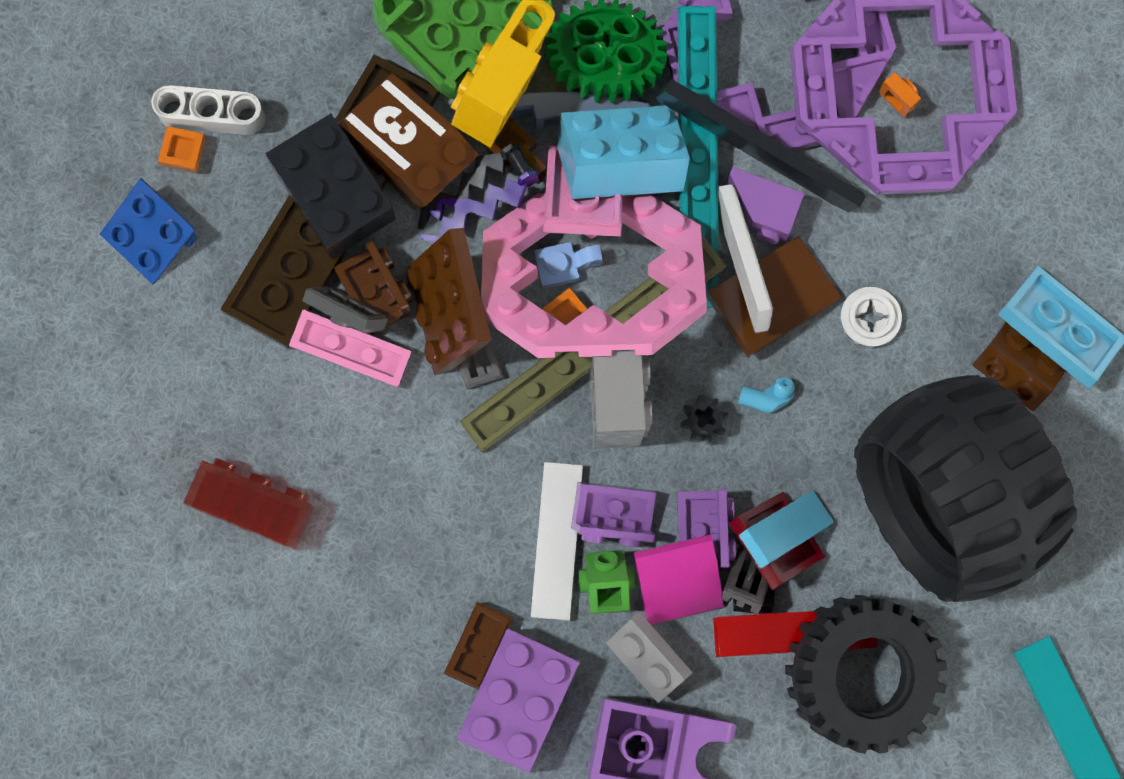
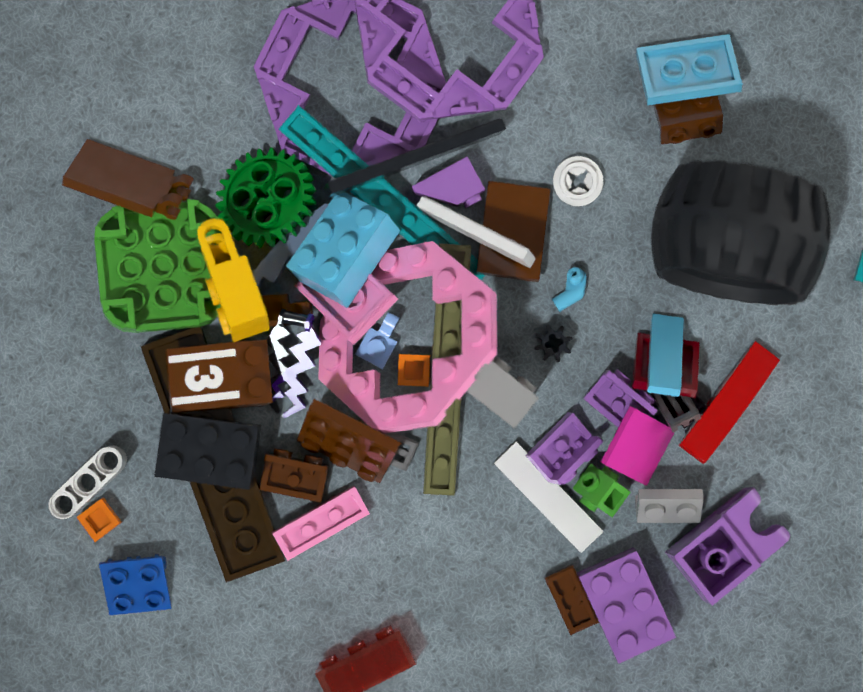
camera: 45 degrees left, 10 degrees up
(345, 310) = (295, 507): dark grey plate -> none
(818, 660) = (755, 377): black tyre -> none
(900, 94) = (454, 34): orange plate -> none

